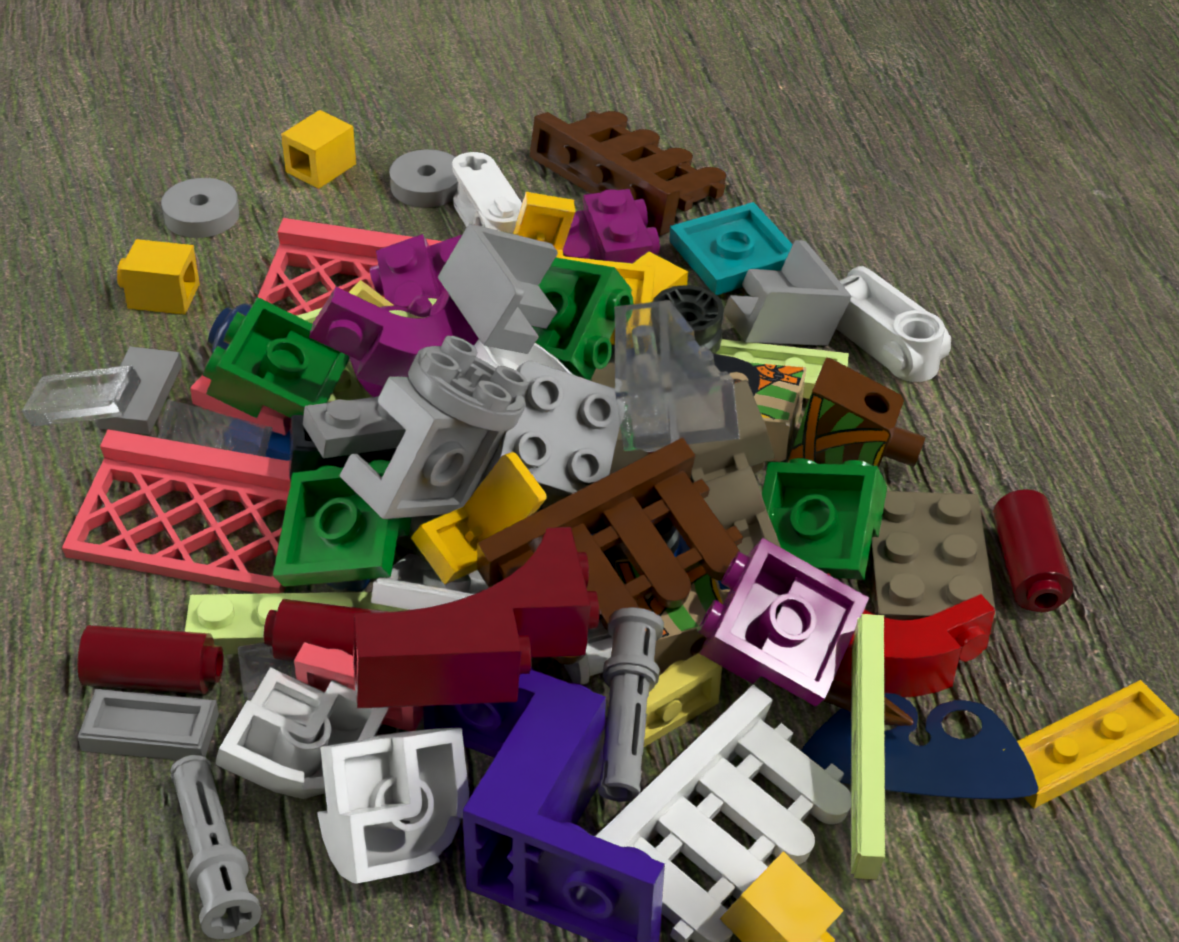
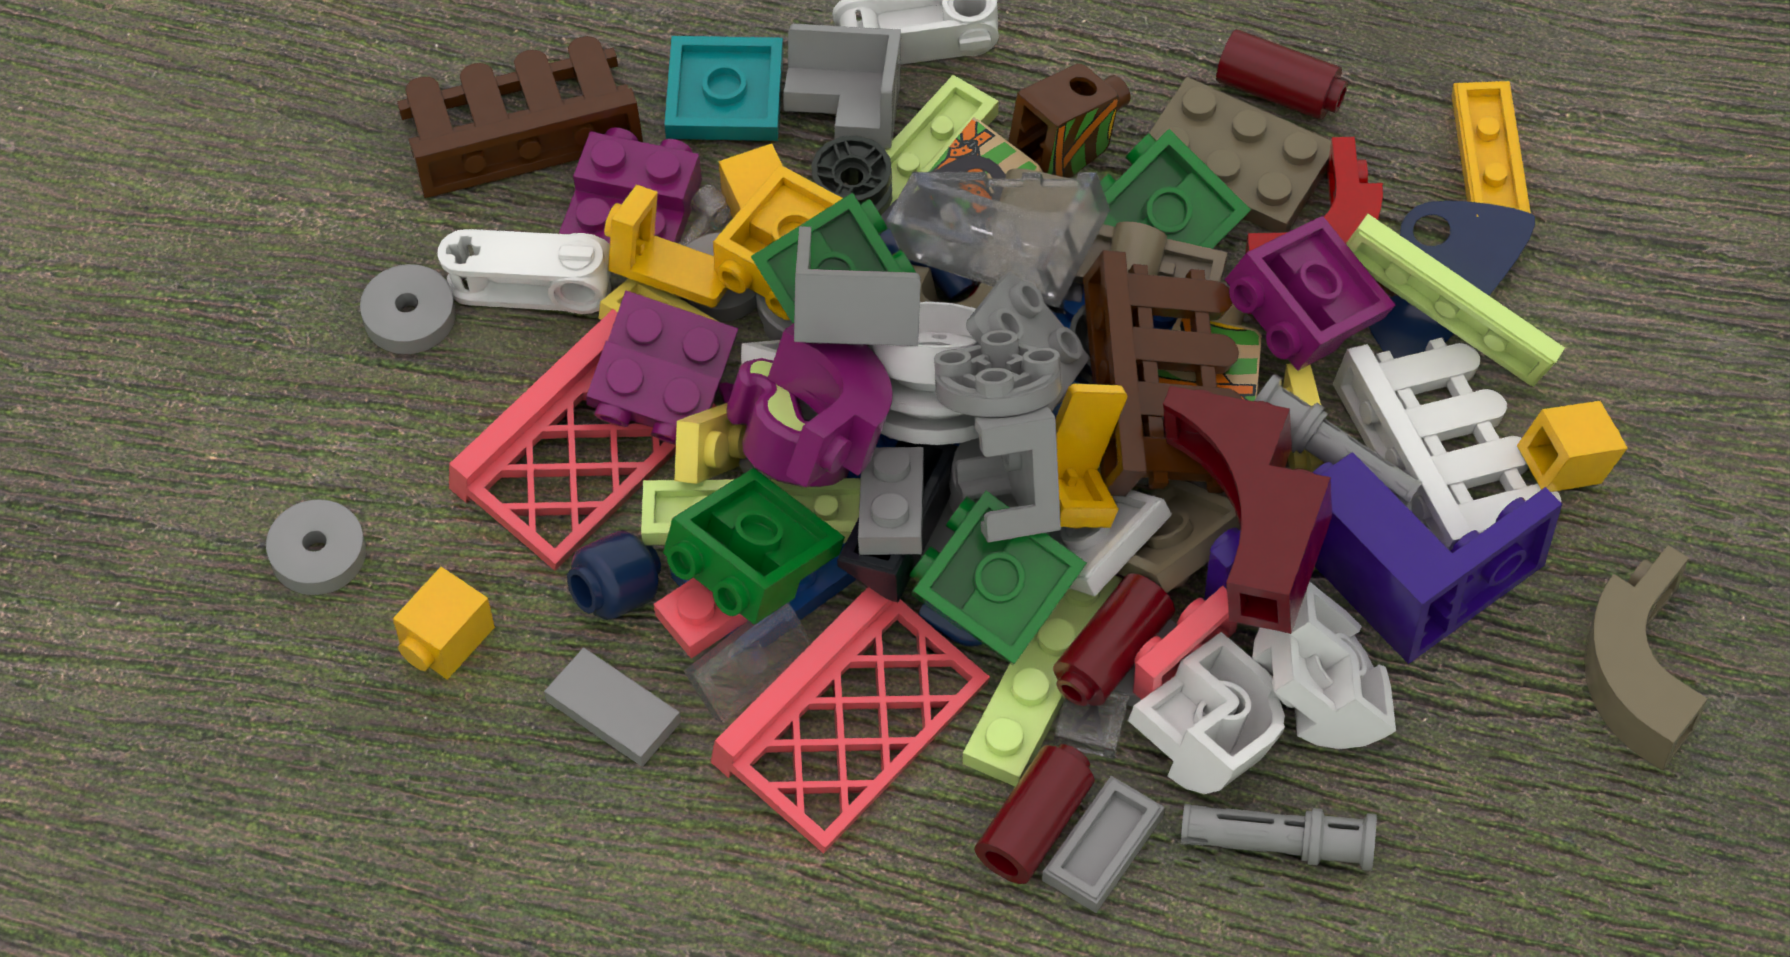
camera: 60 degrees left, 15 degrees up
(82, 396) = (608, 759): clear tile -> none
(319, 149) = (300, 388): yellow brick -> none

